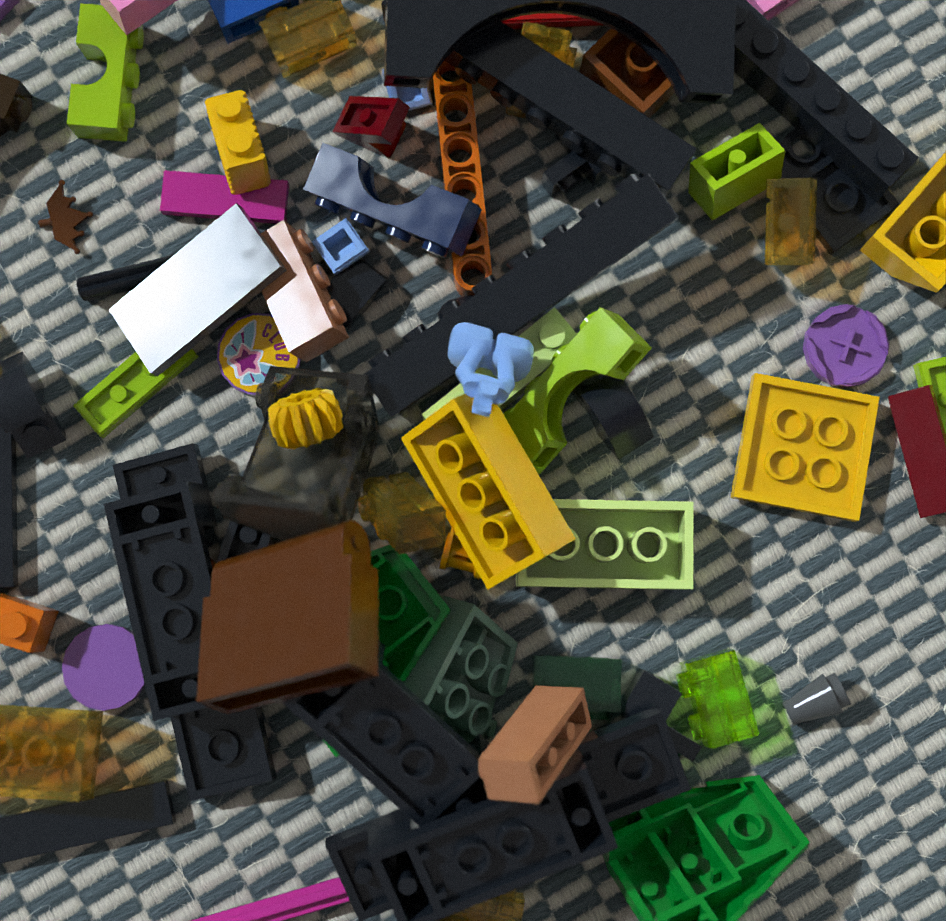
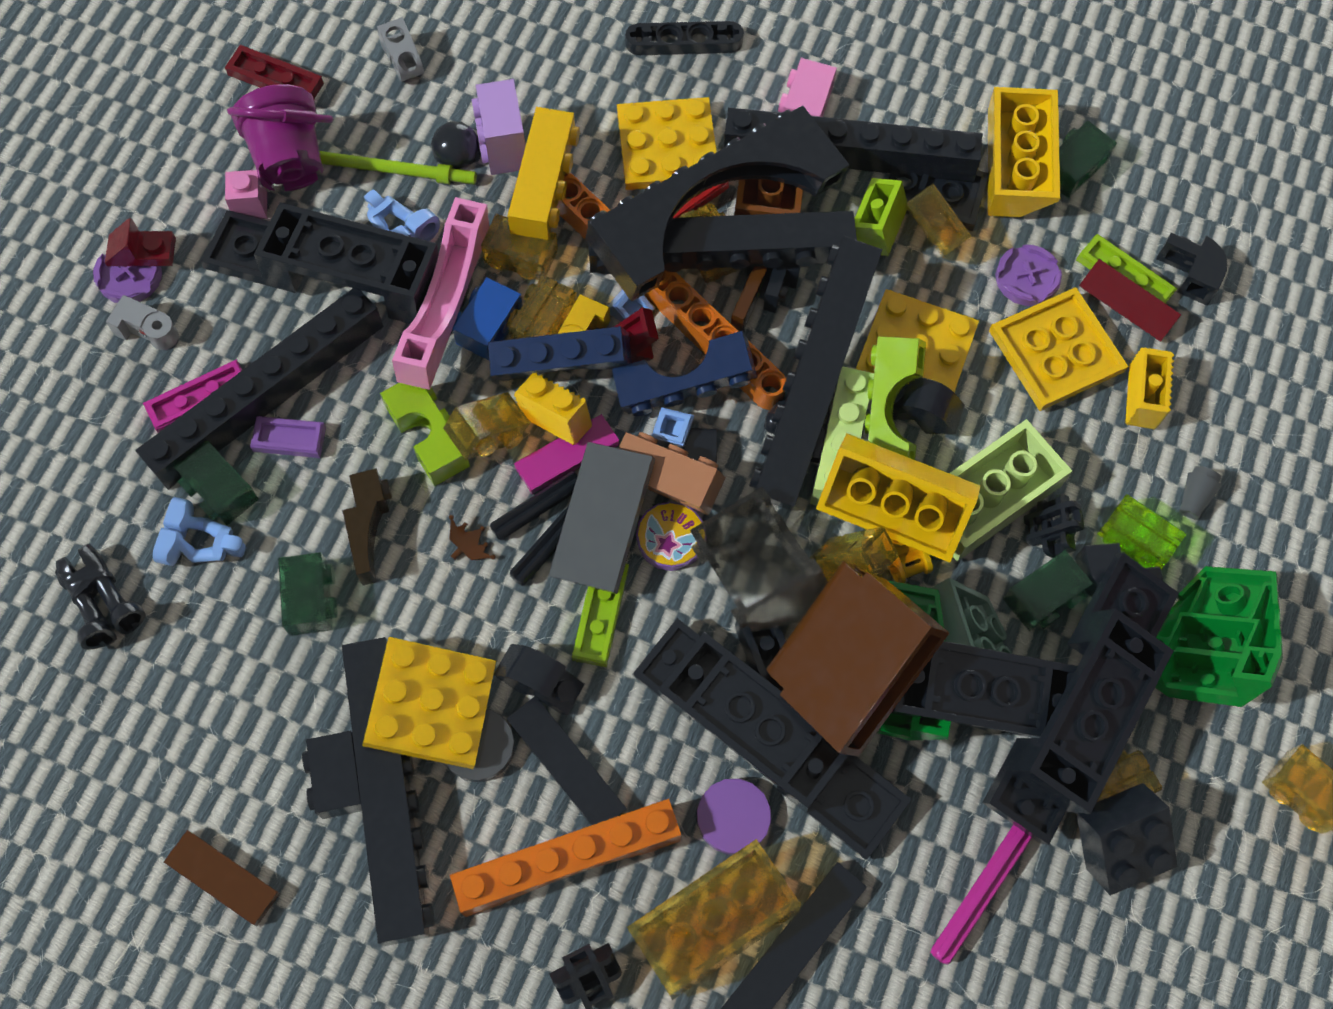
camera: 35 degrees left, 15 degrees down
(148, 228) = (534, 506): none -> black axle
(157, 114) = (486, 426): none -> clear yellow brick
(284, 89) = (573, 350): none -> dark blue arch
(305, 418) = (744, 541): yellow gear -> none
(335, 72) = (586, 315): none -> yellow leg
(506, 357) = (836, 418): light blue piece -> none
(528, 164) = (749, 297): none -> reddish brown tile
(535, 744) = (1067, 626): nougat brick -> none
(638, 632) = (1060, 528): none -> black piece
(685, 334) = (944, 331): none -> yellow plate
(858, 559) = (1149, 388): none -> yellow brick

